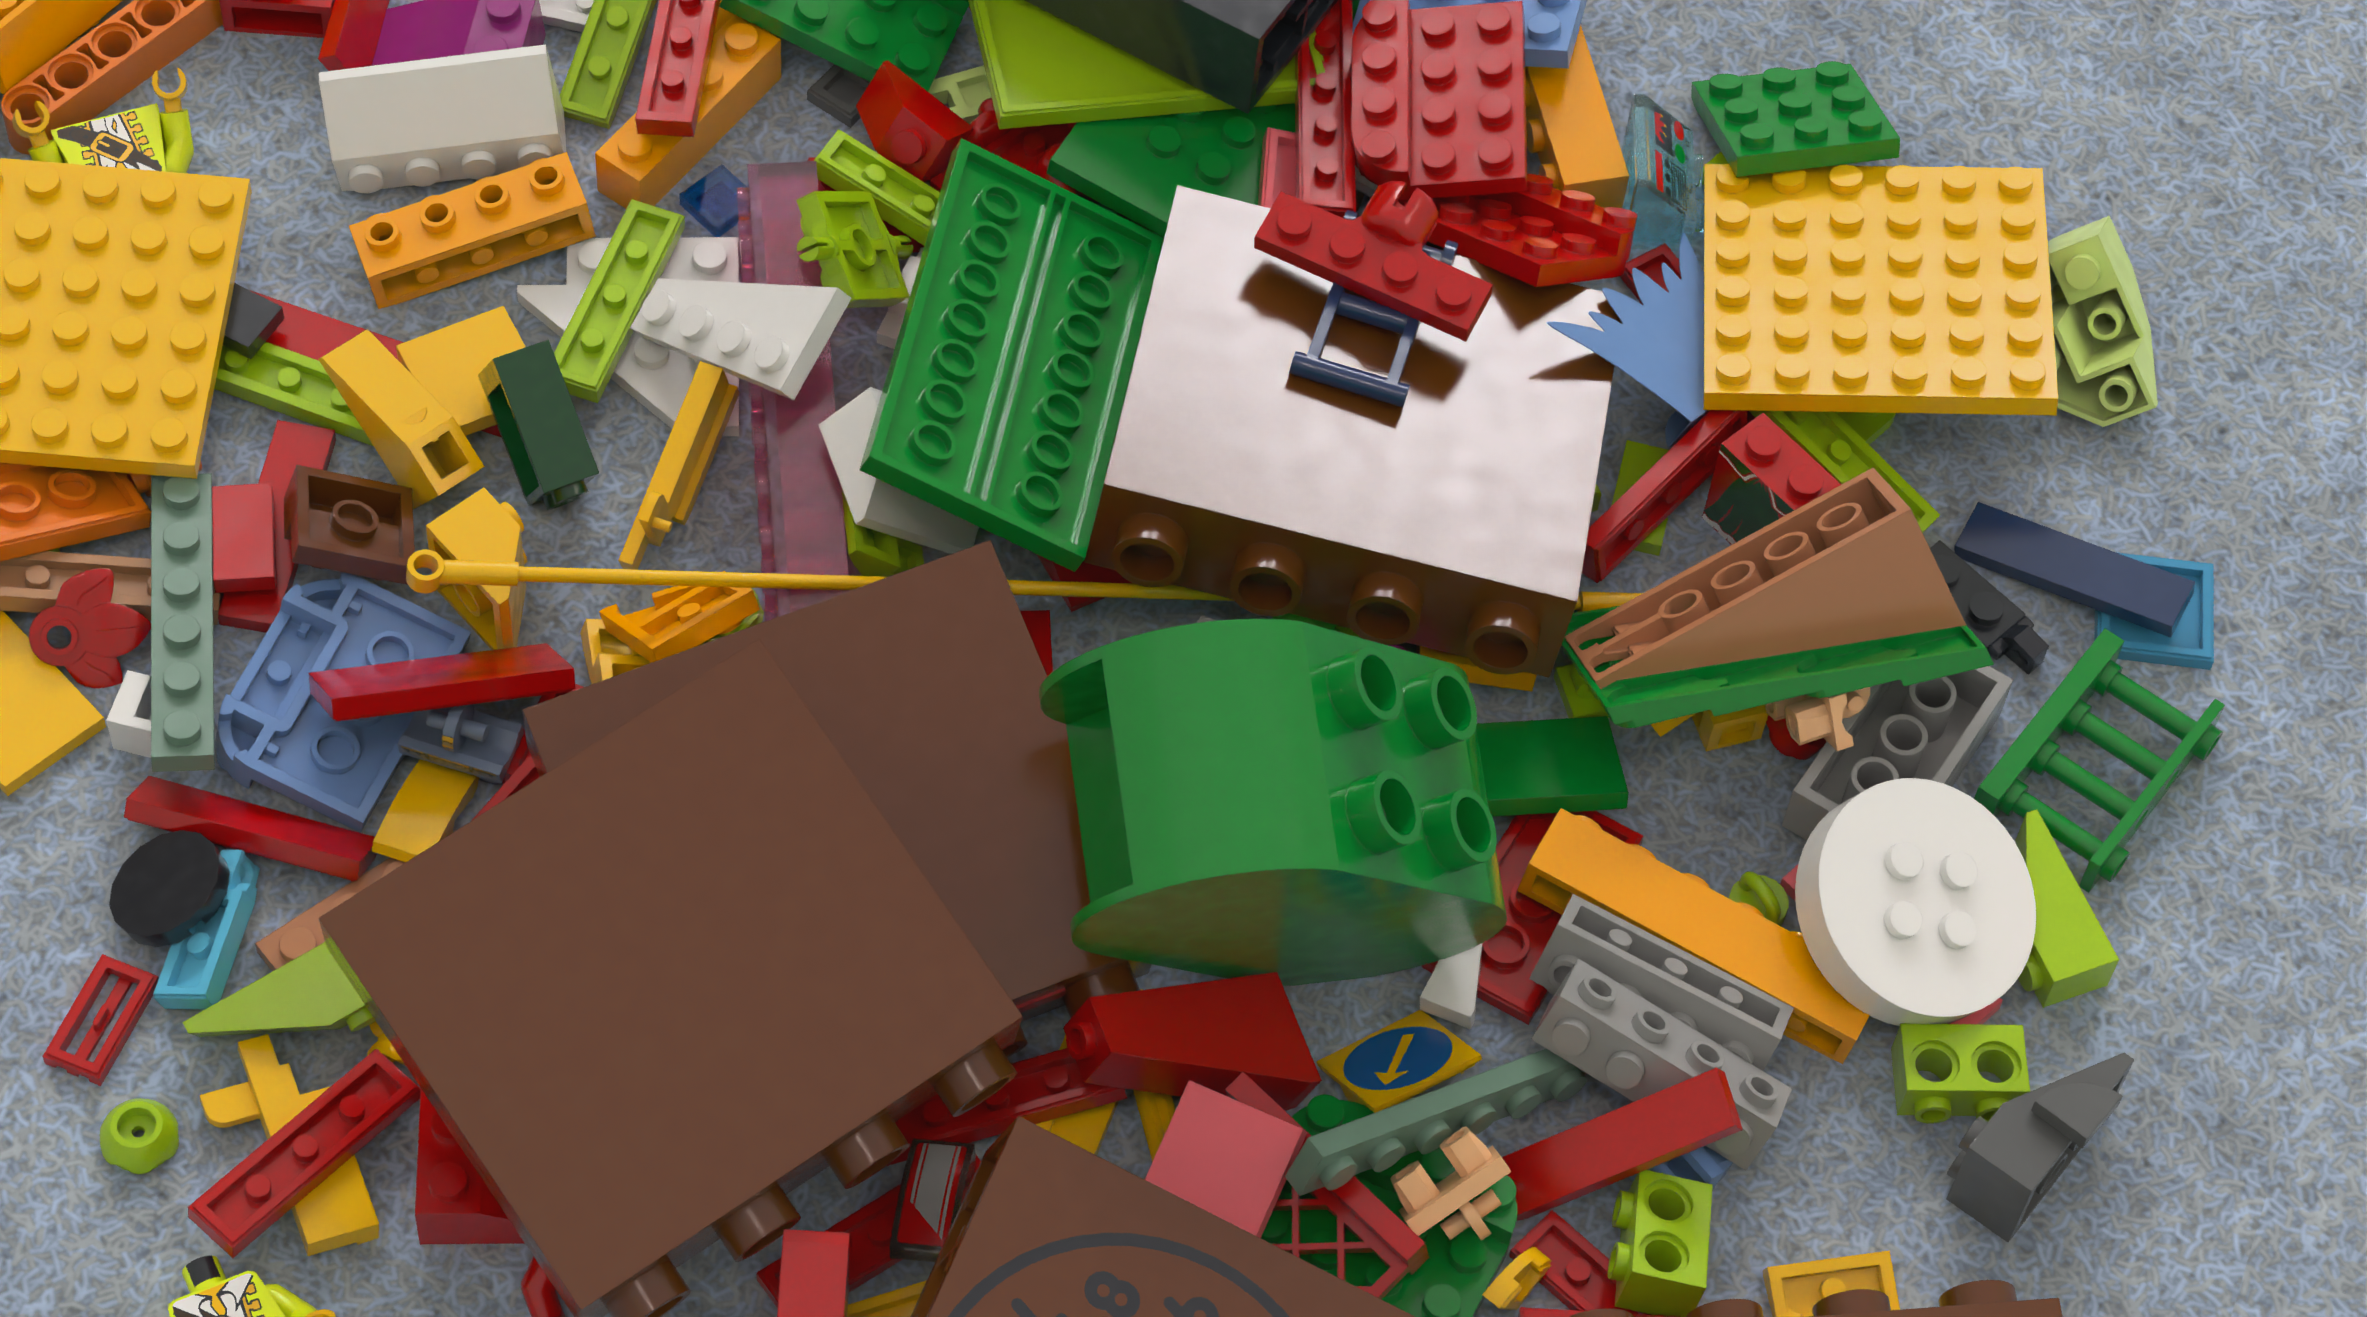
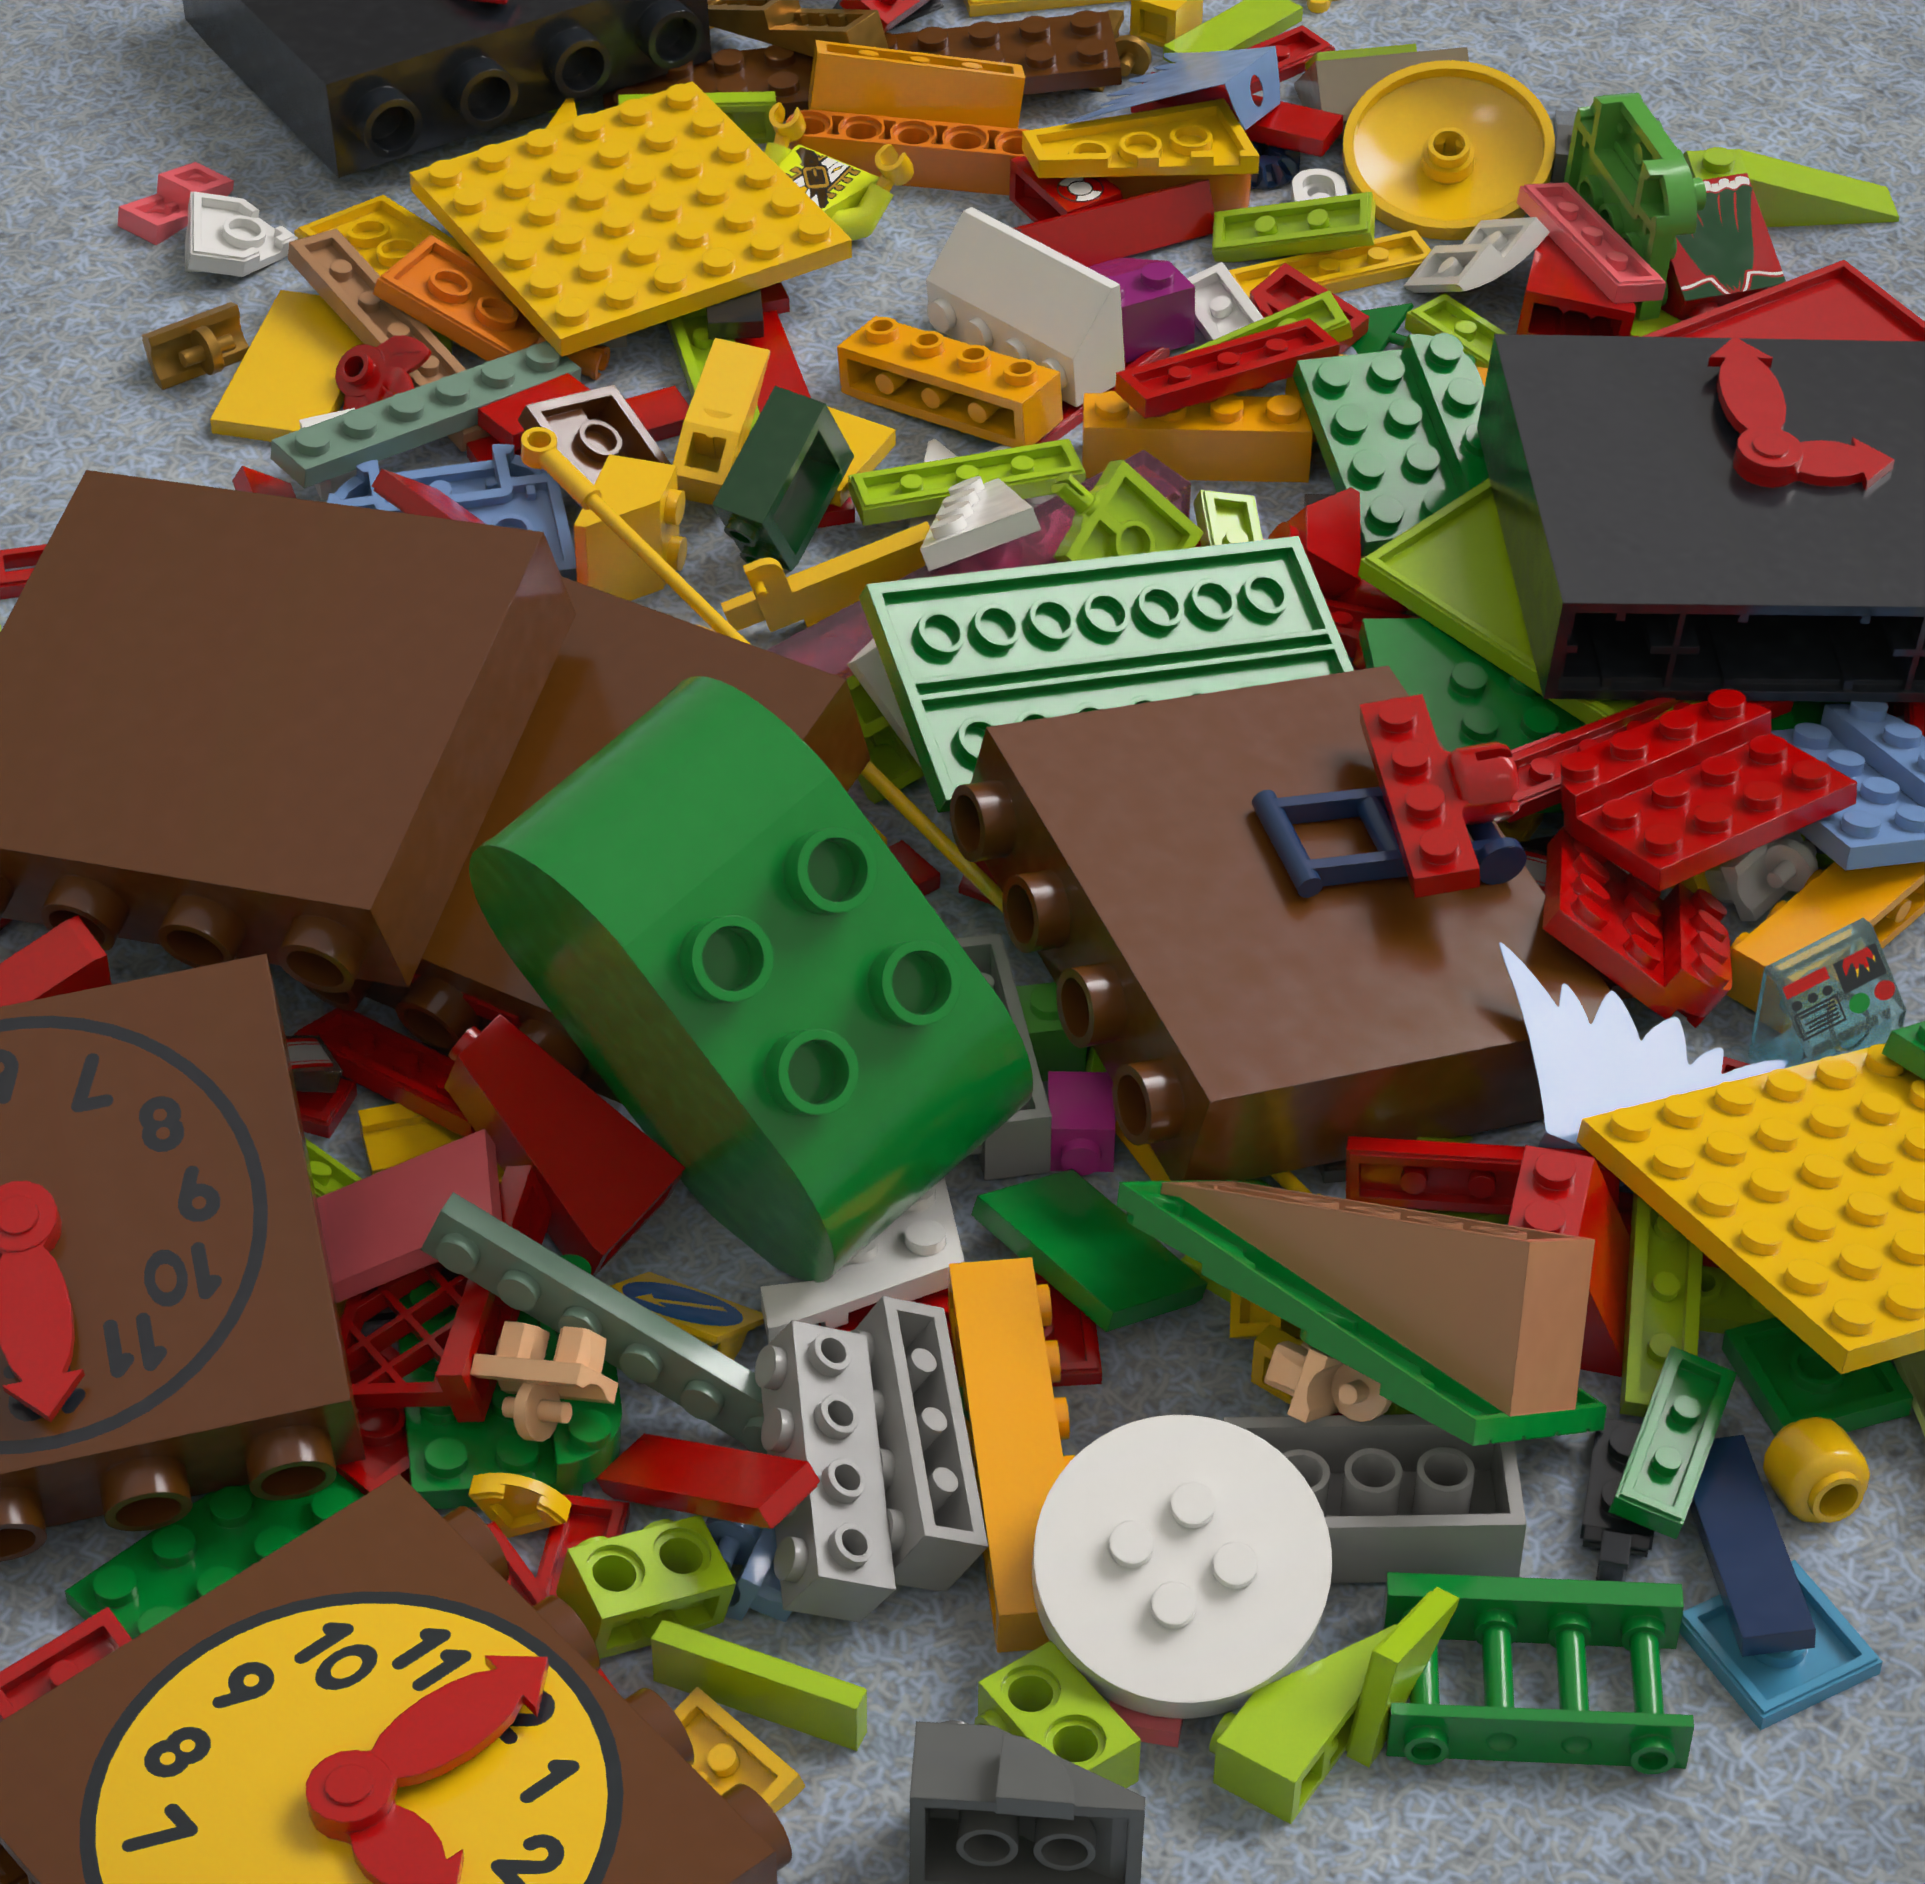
camera: 60 degrees right, 15 degrees down
(1793, 1226) = (760, 1684): none -> lime tile
(1951, 444) = (1796, 1383): none -> green plate
(1974, 546) = (1673, 1442): none -> green tile
(2041, 484) = (1816, 1470): none -> yellow head
(2068, 826) = (1394, 1671): none -> lime tile

